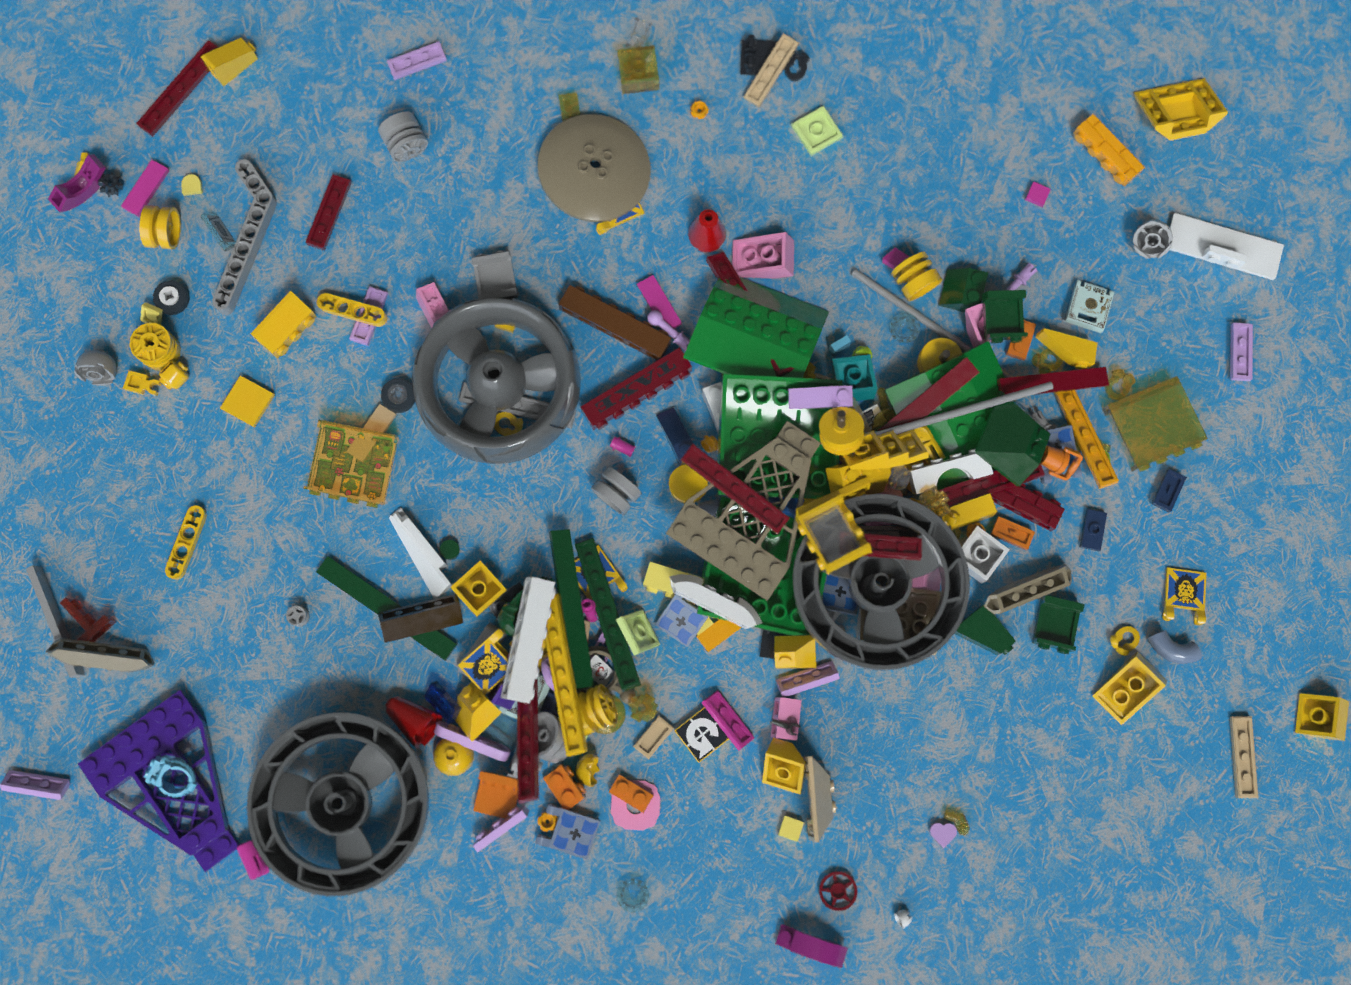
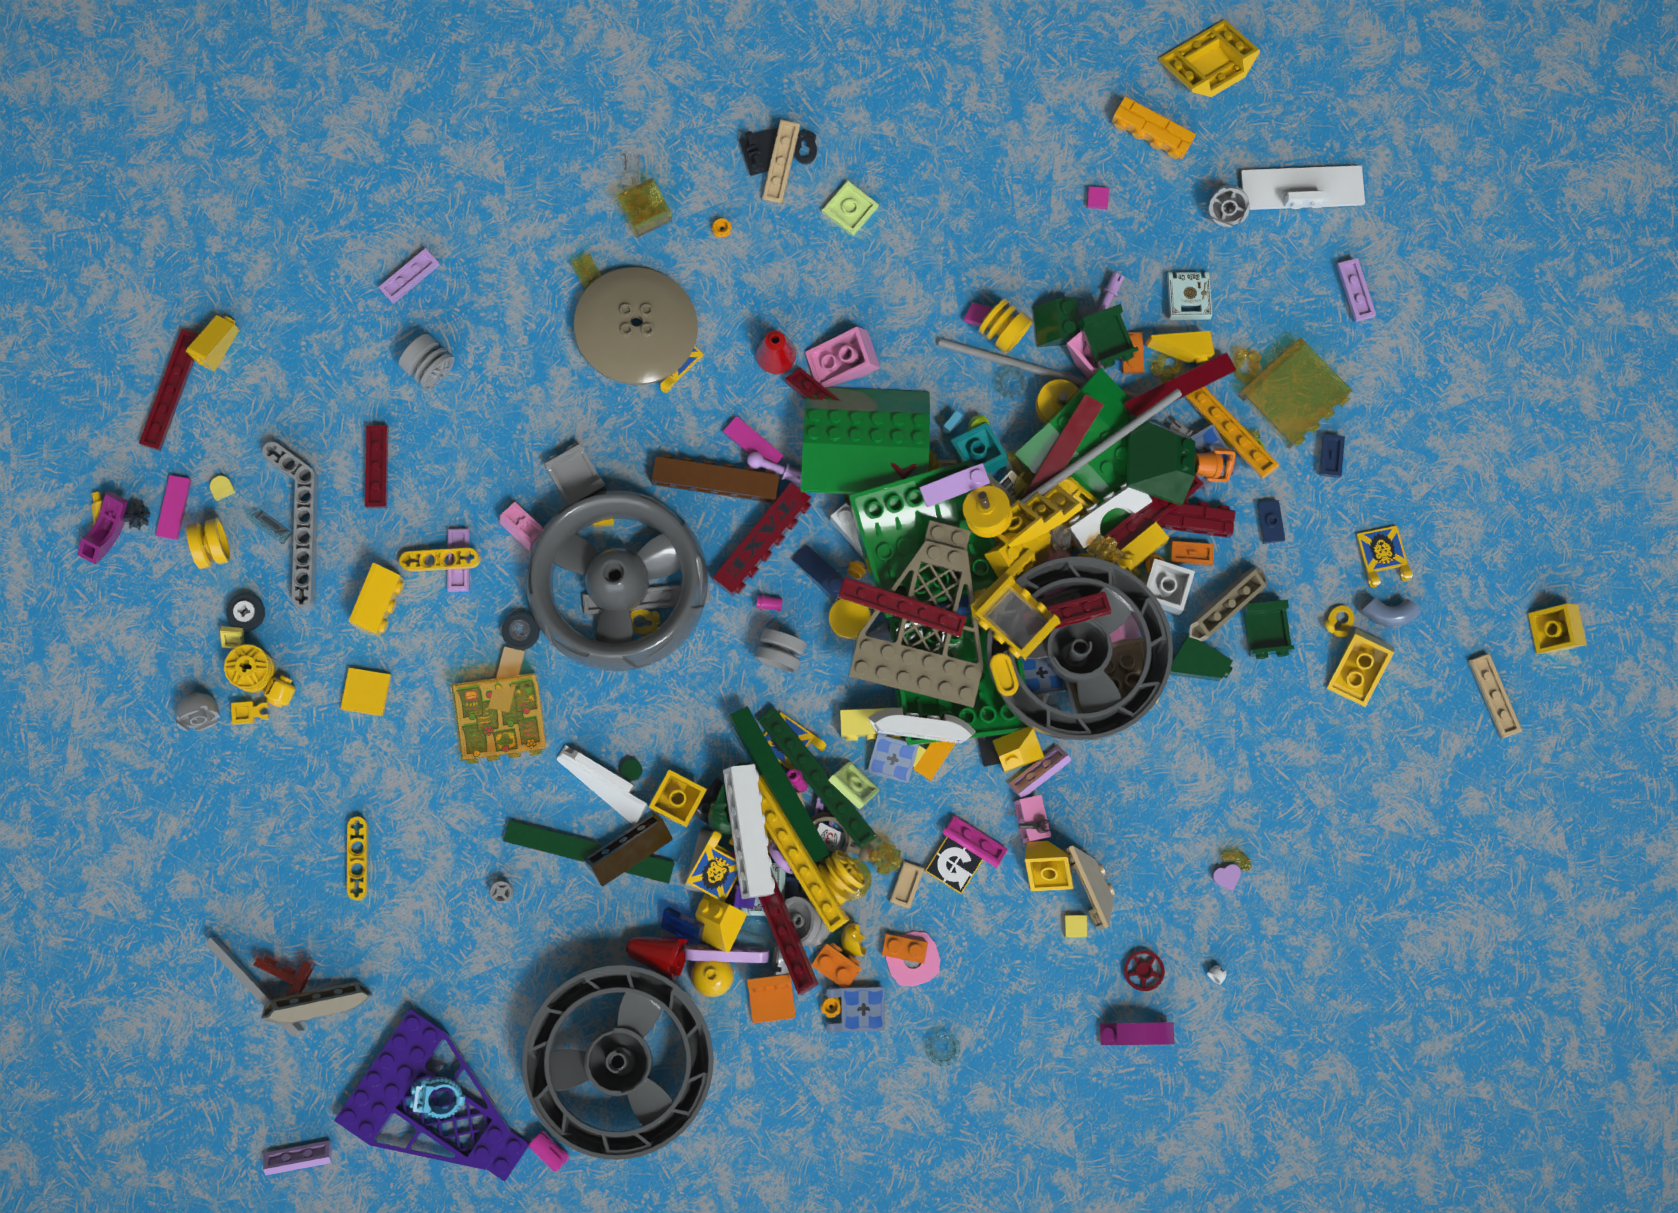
camera: 20 degrees left, 0 degrees up
(500, 827) = (786, 1029): lavender plate -> none
(804, 581) = (1004, 674): none -> yellow tile

